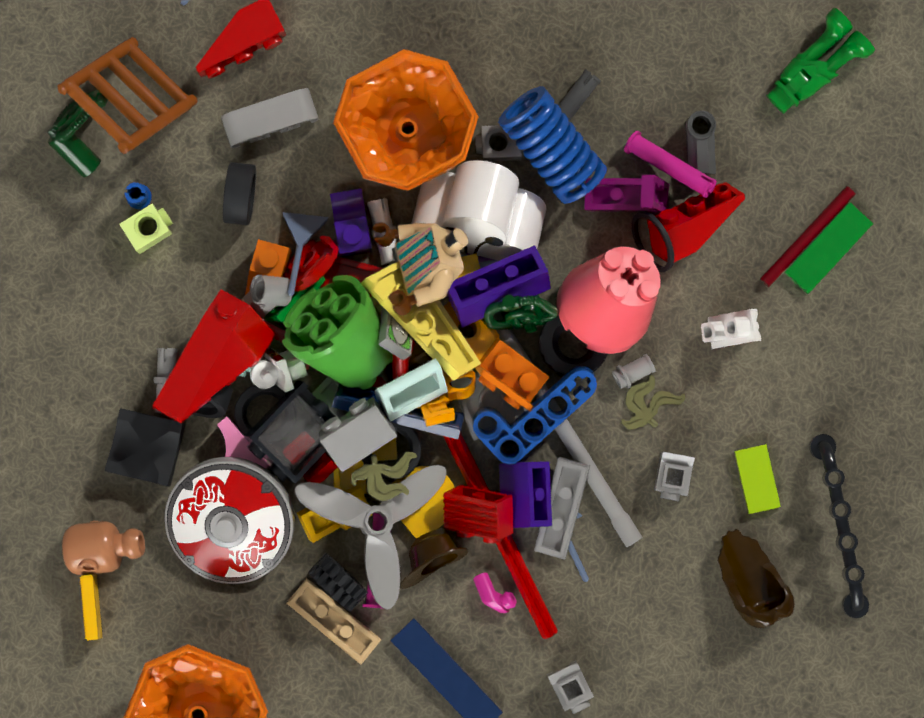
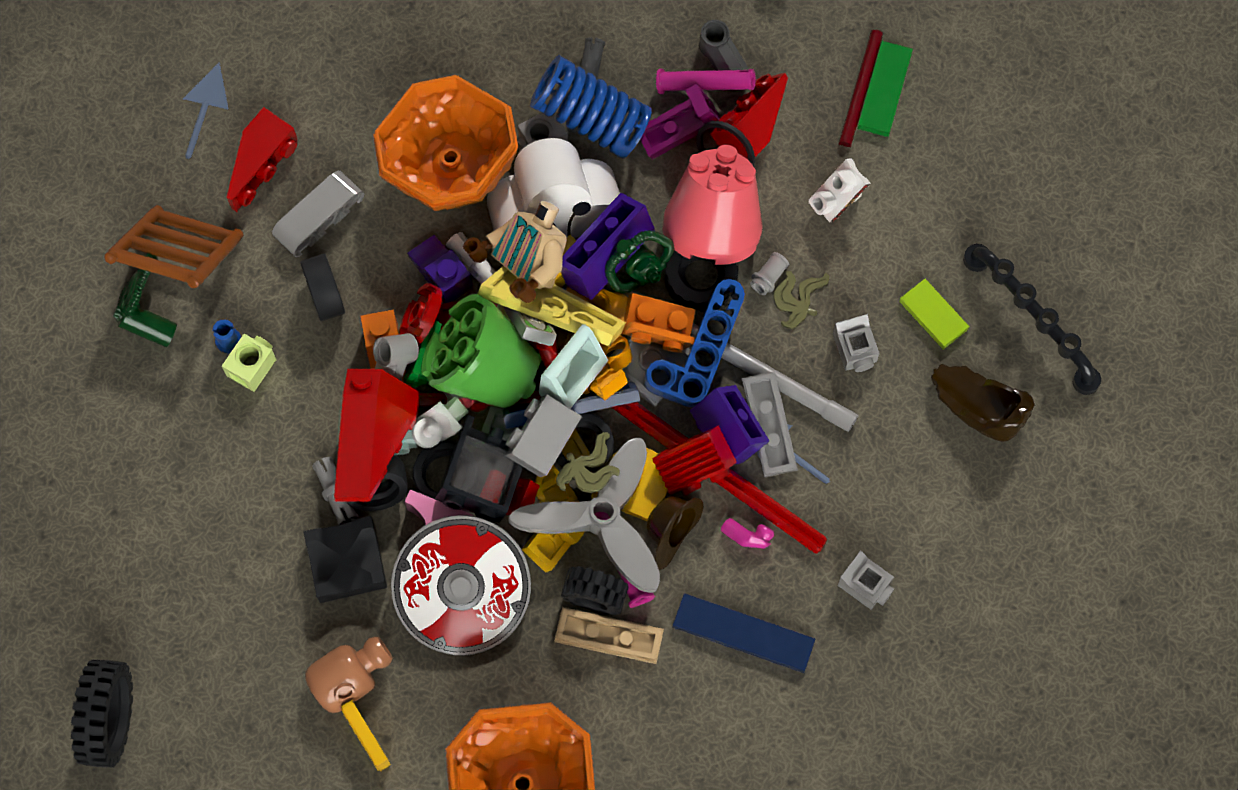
camera: 25 degrees left, 15 degrees down
(302, 229) = (398, 296): sand blue piece -> none

